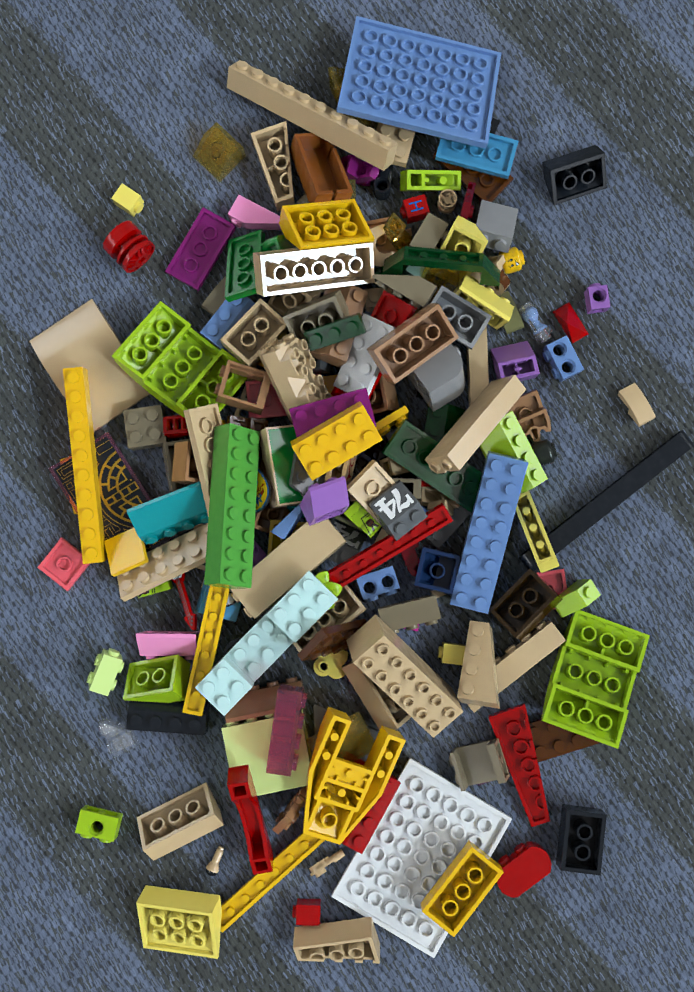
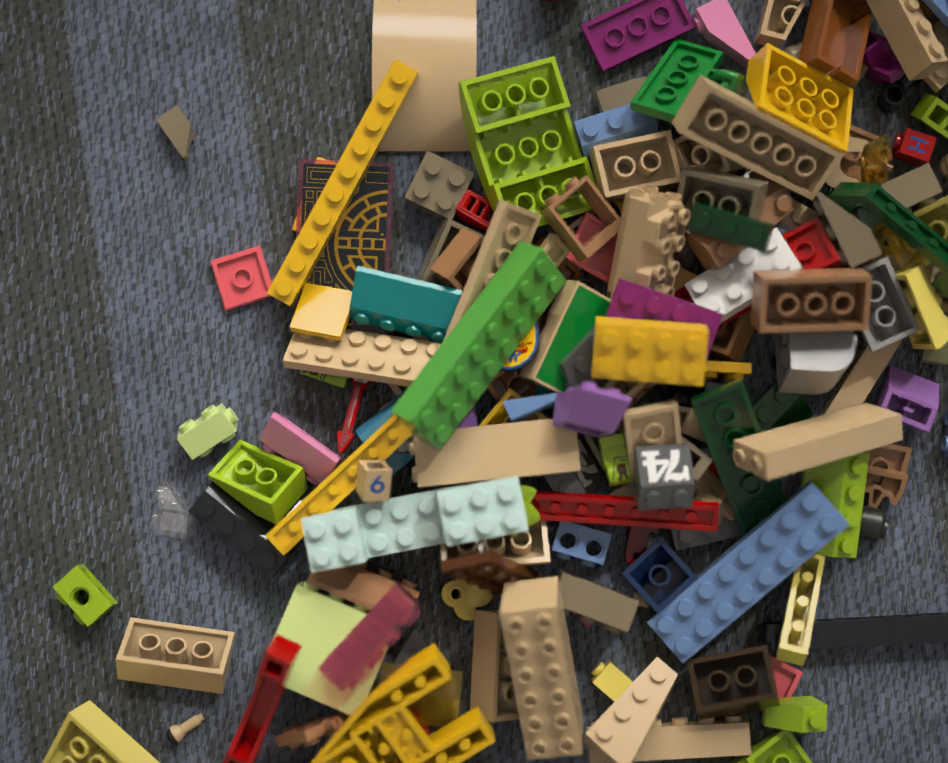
camera: 25 degrees right, 0 degrees up
(225, 633) = (373, 481): none -> tan brick
(240, 417) = (555, 249): none -> tan tile

